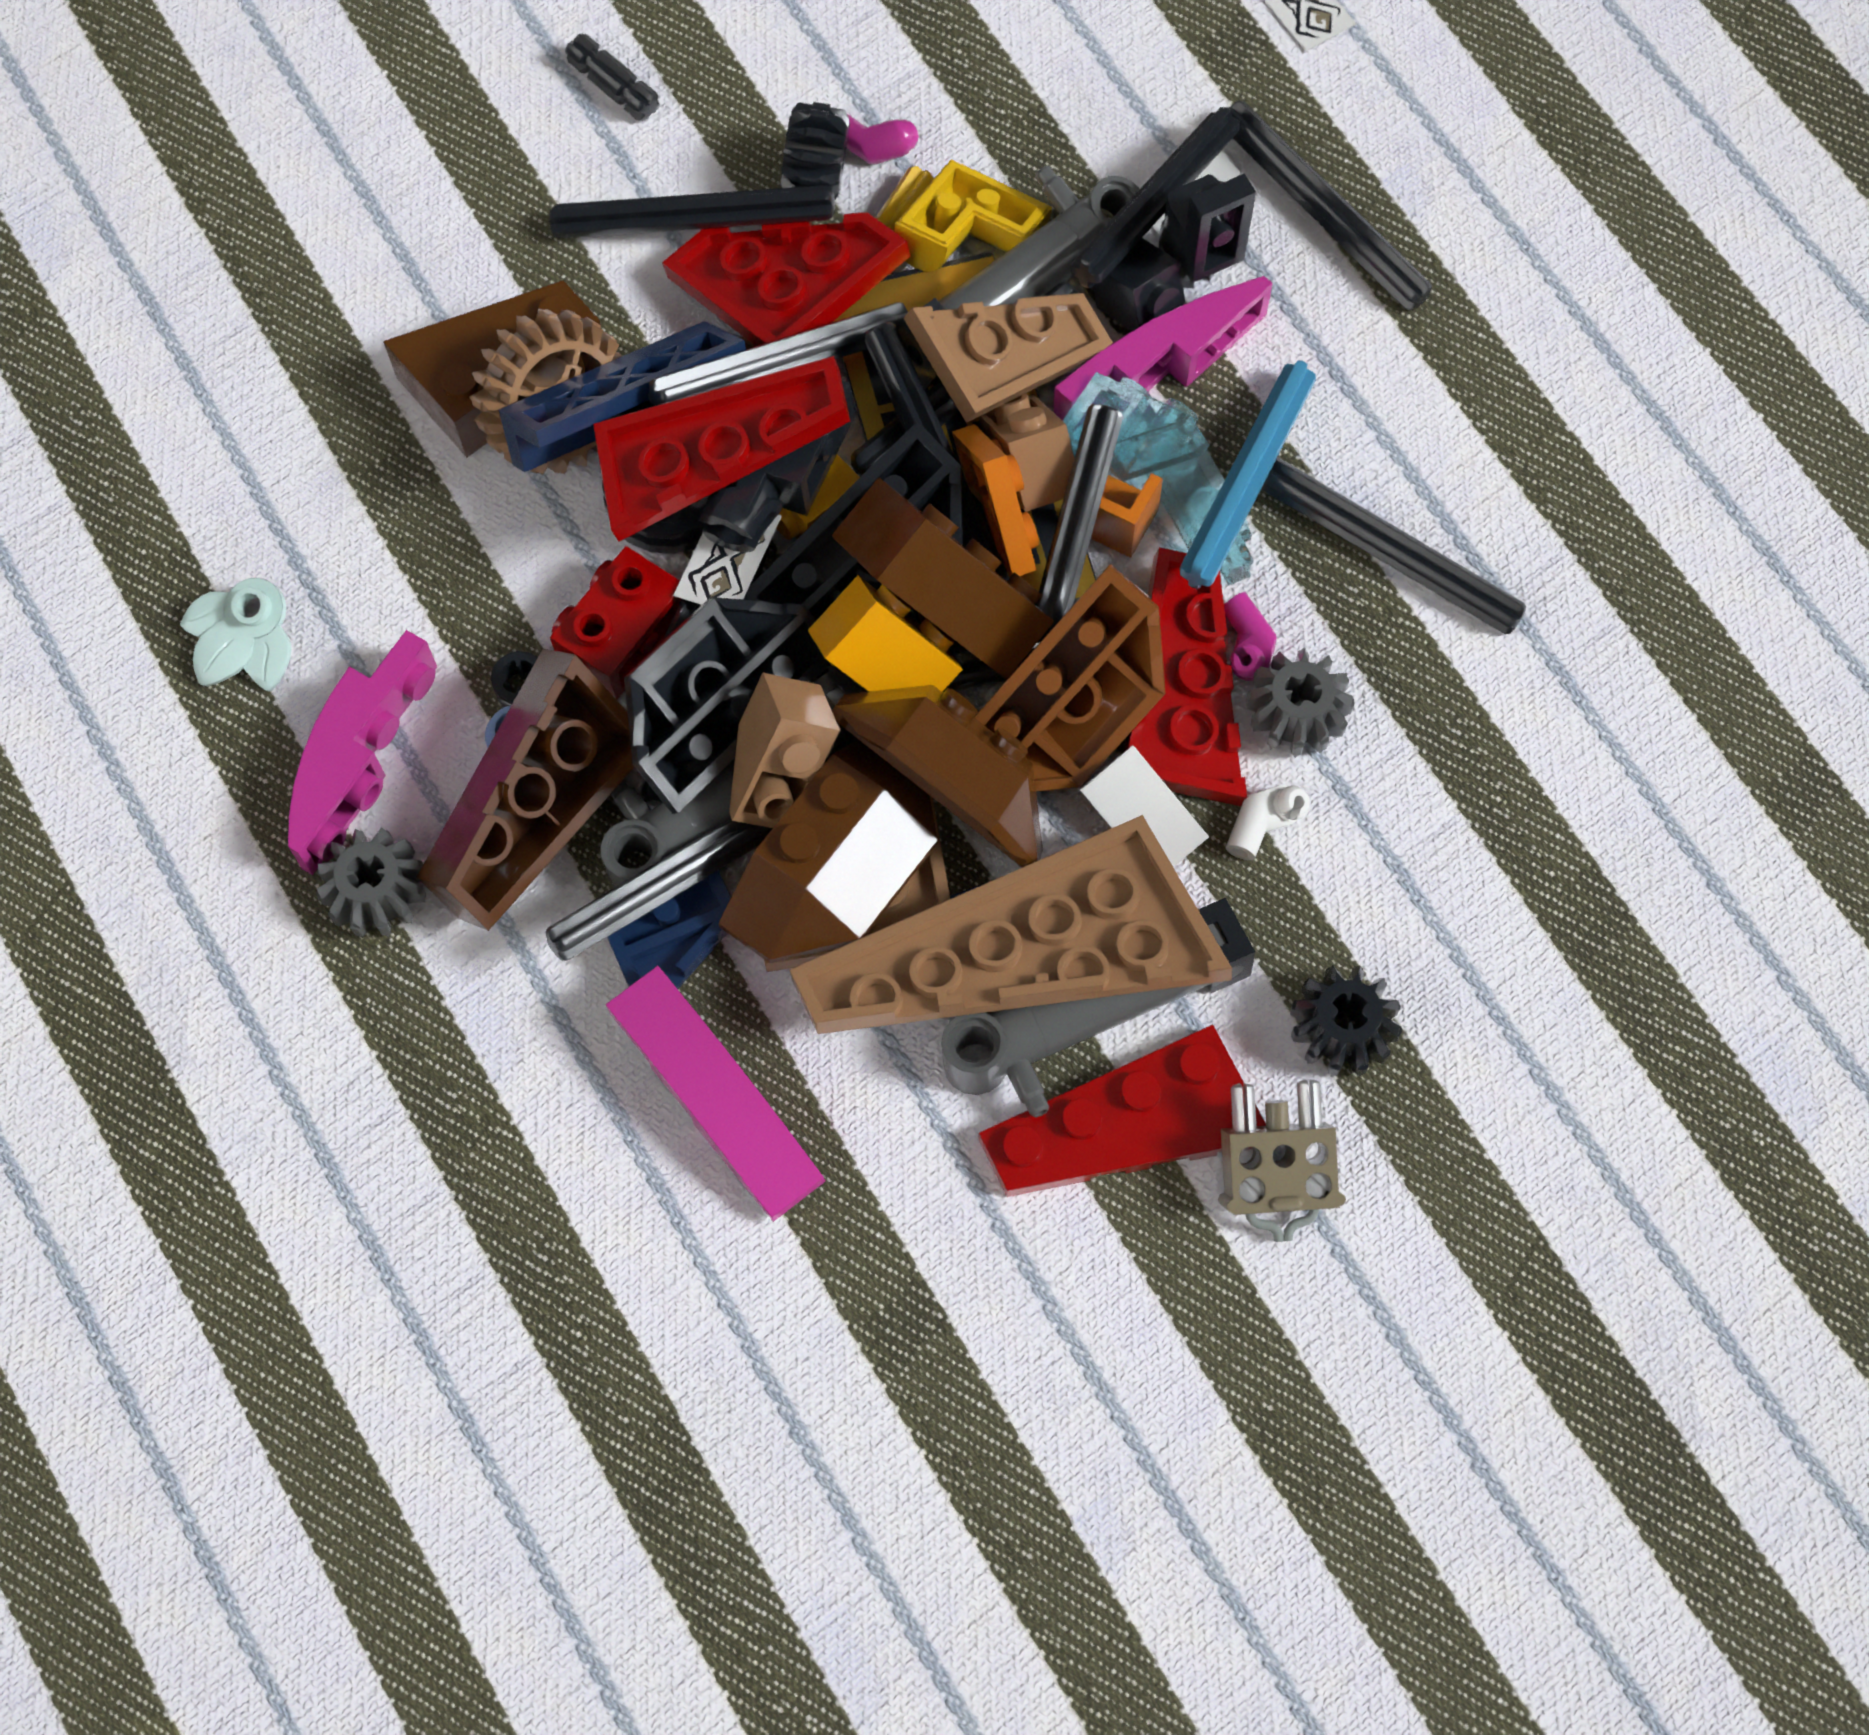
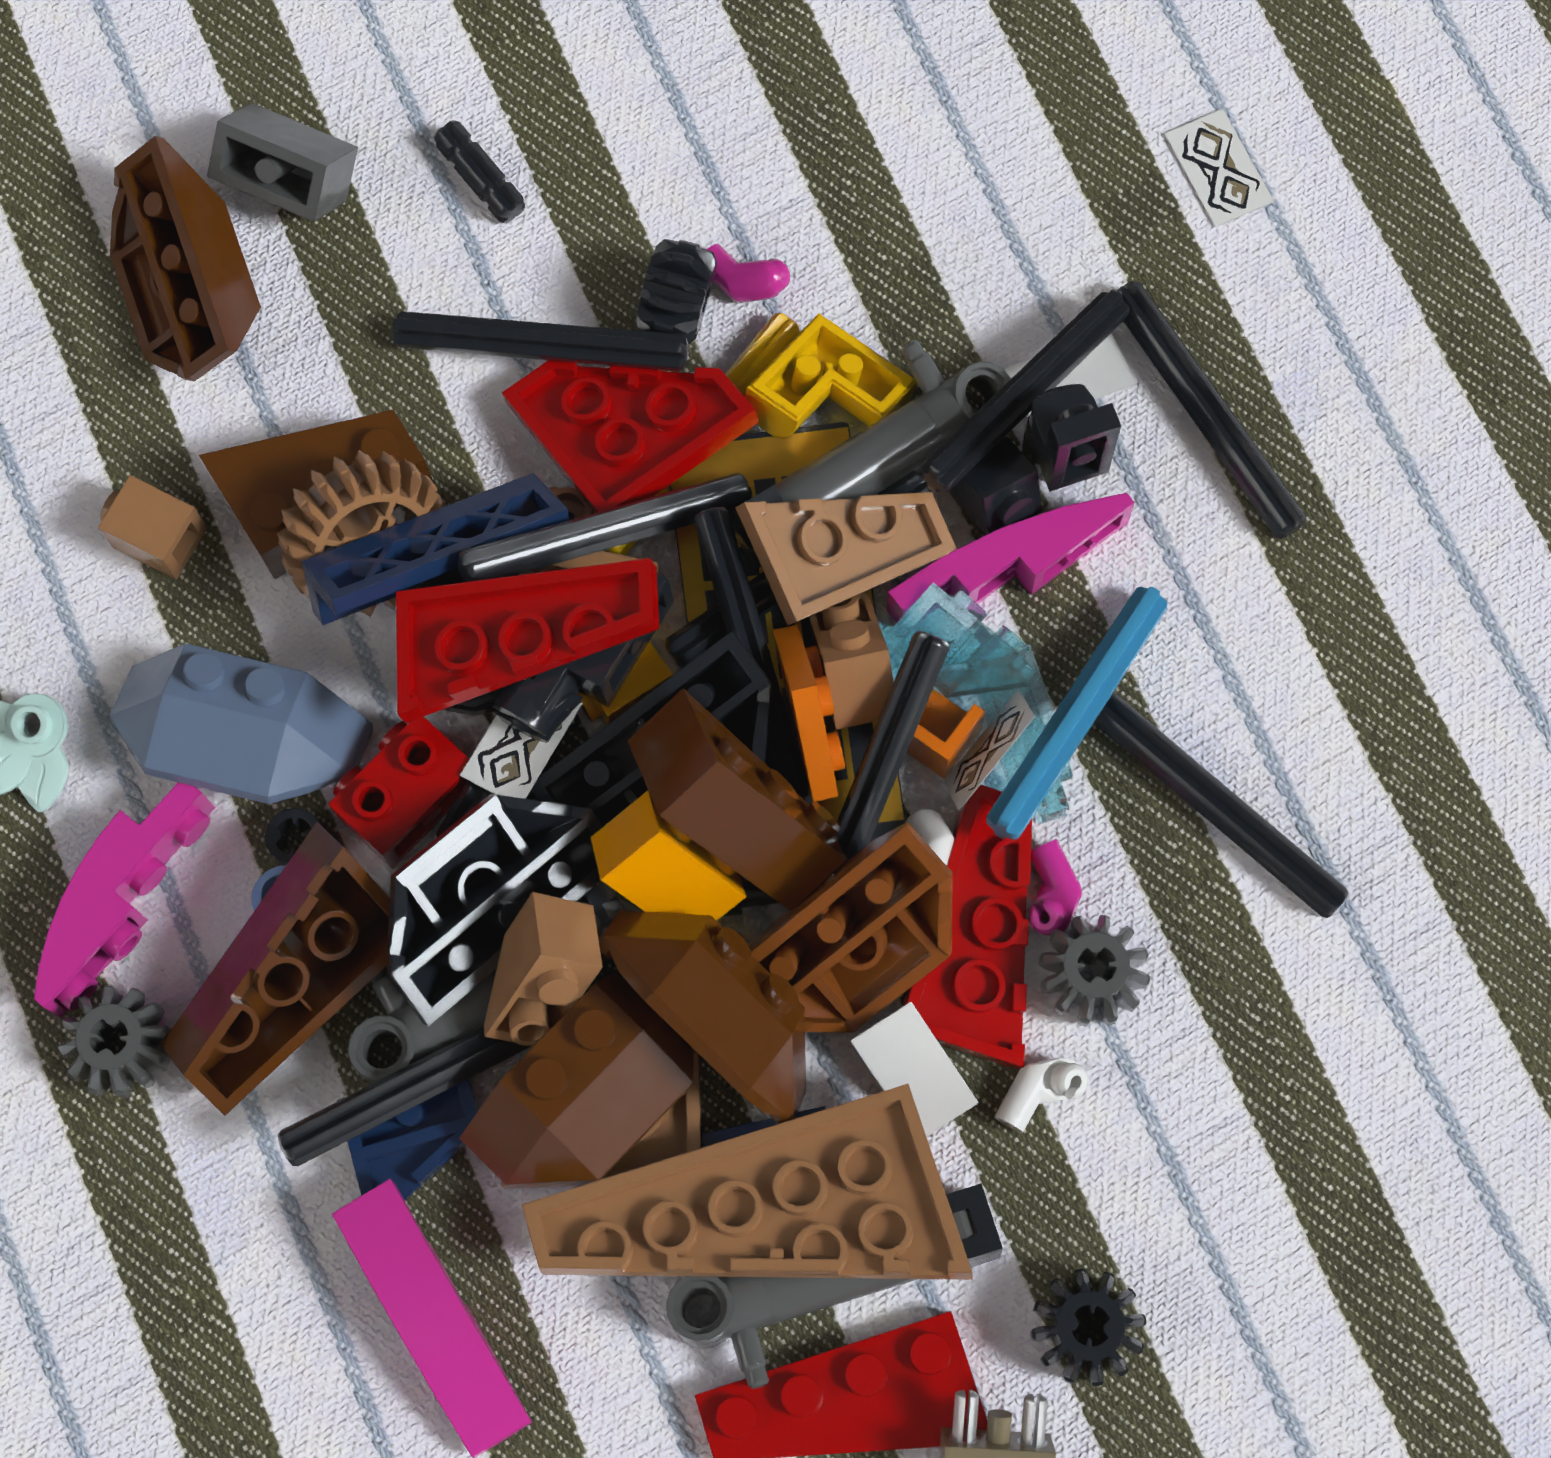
camera: 10 degrees right, 5 degrees up
(336, 181) = (178, 263): none -> reddish brown wedge
(344, 418) = (151, 526): none -> medium nougat brick
(425, 84) = (282, 161): none -> dark grey brick
(450, 578) = (237, 725): none -> sand blue wedge
(1171, 515) = (989, 749): none -> white sticker

